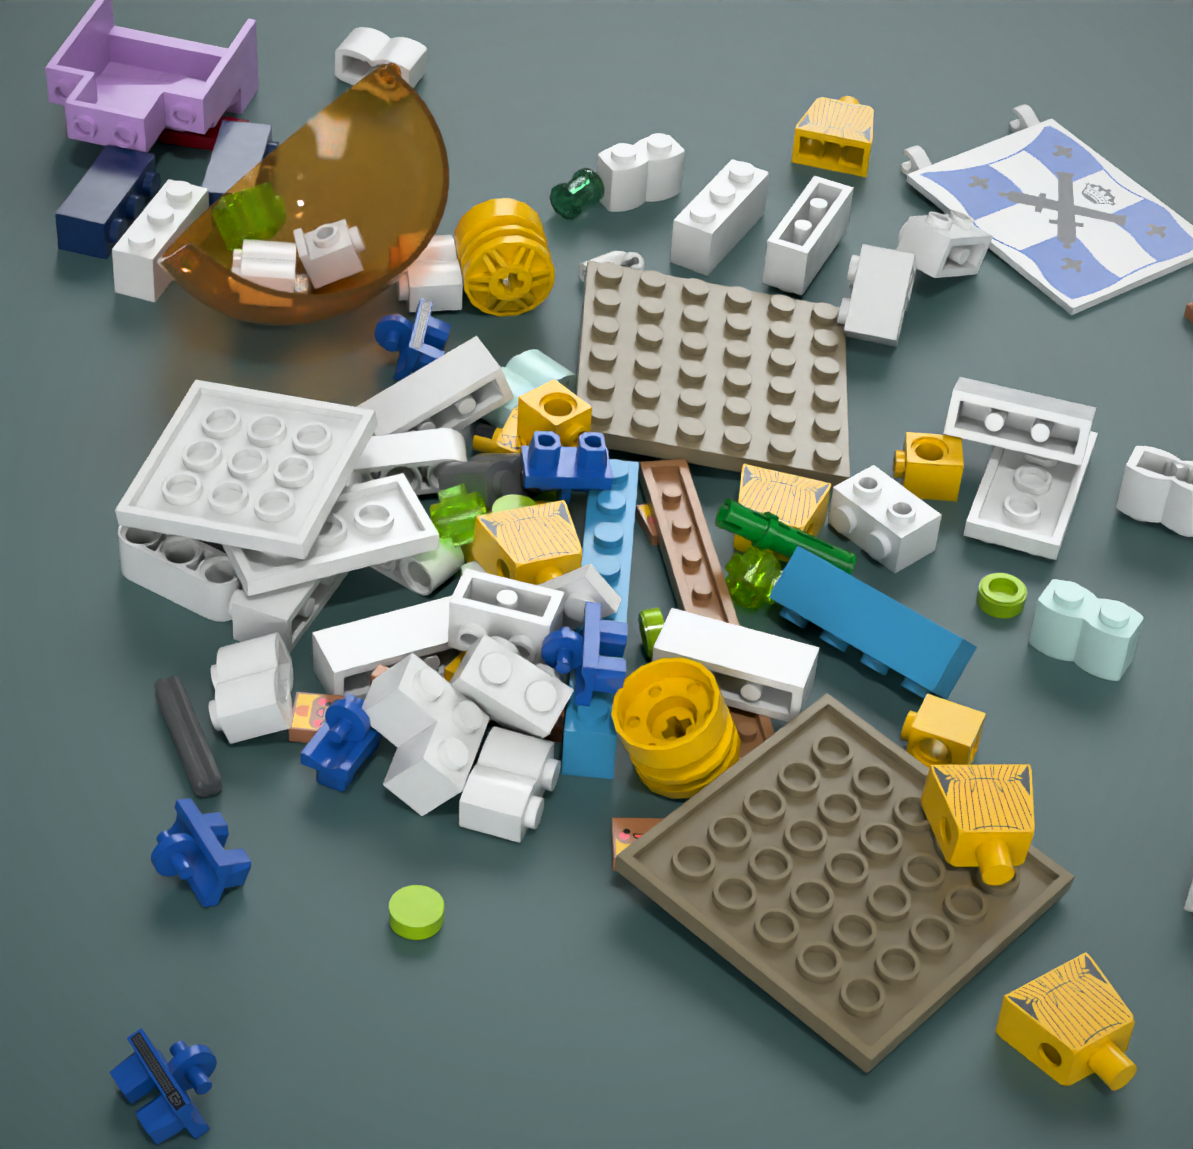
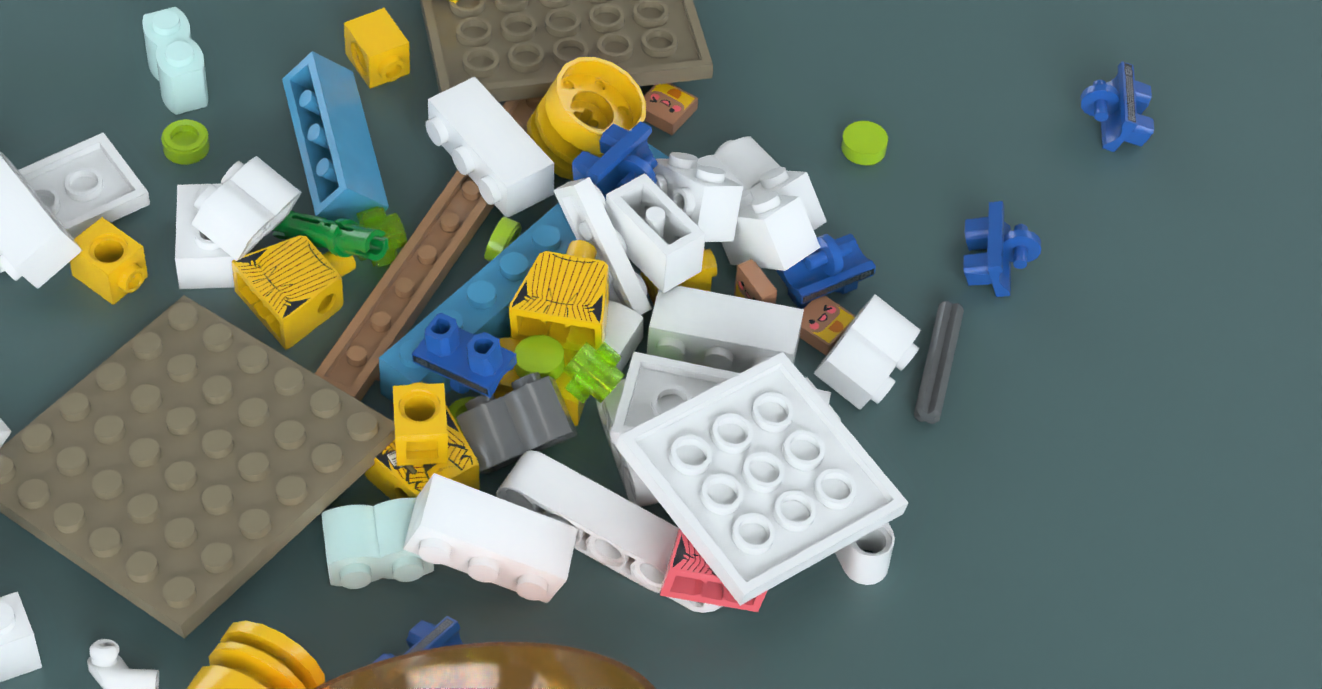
camera: 145 degrees left, 10 degrees up
(857, 496) = (244, 206): none -> white brick

